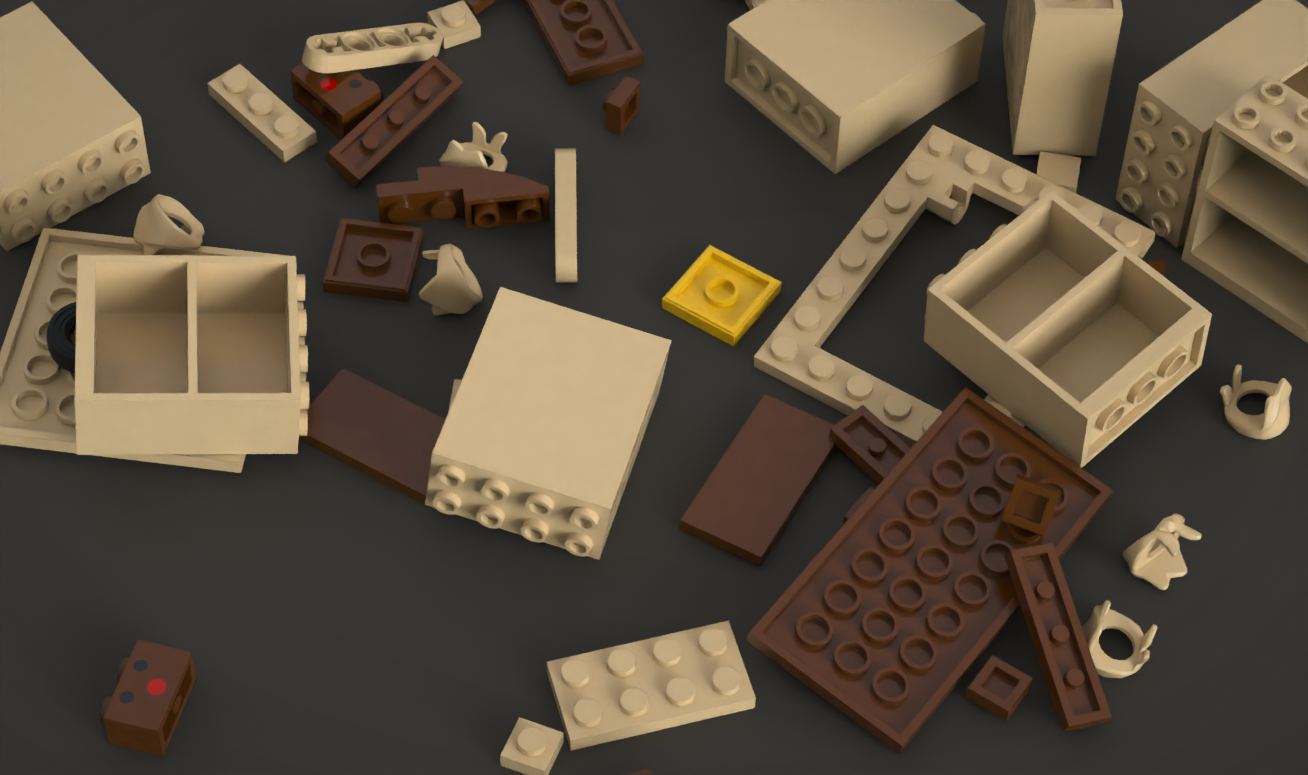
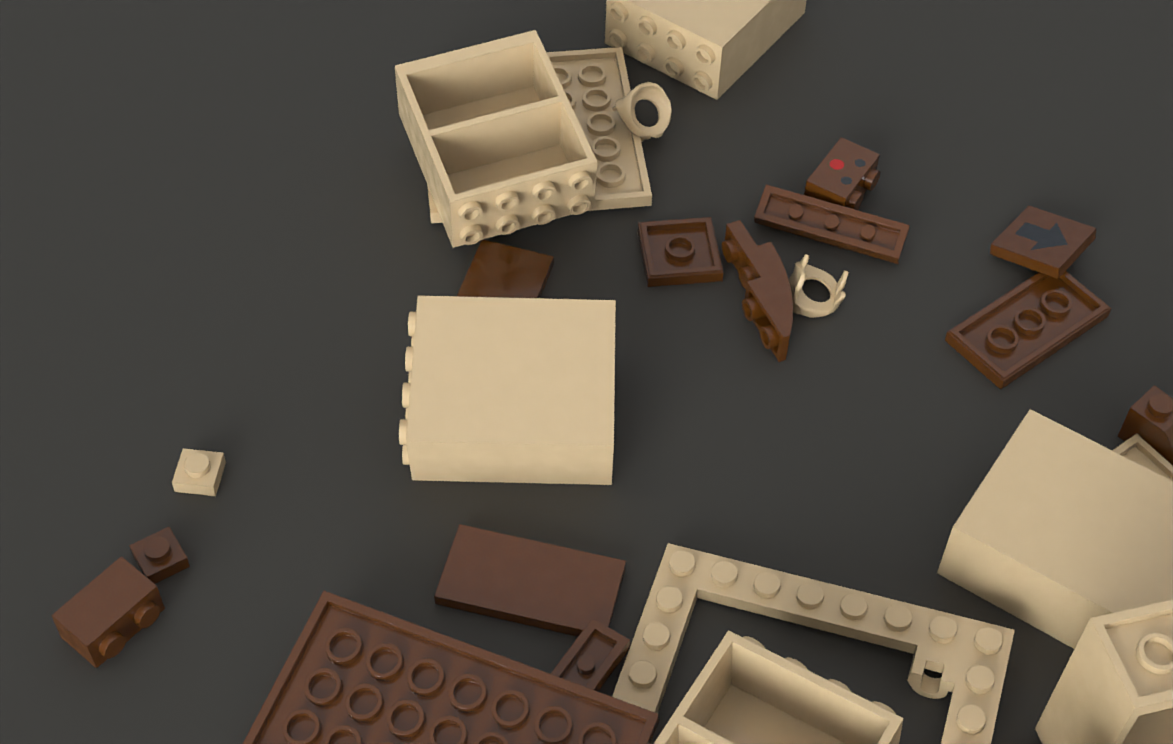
camera: 75 degrees right, 0 degrees up
(148, 697) = (197, 219): reddish brown brick -> none
(262, 112) = (806, 145): tan plate -> none
(372, 47) = (890, 187): tan beam -> none
(454, 286) = (648, 291): tan piece -> none
(455, 23) = (969, 241): tan plate -> none
(565, 215) = (740, 371): tan beam -> none
(622, 105) = (927, 376): reddish brown plate -> none
(650, 685) = (280, 543): tan plate -> none
(721, 295) = (738, 507): yellow tile -> none

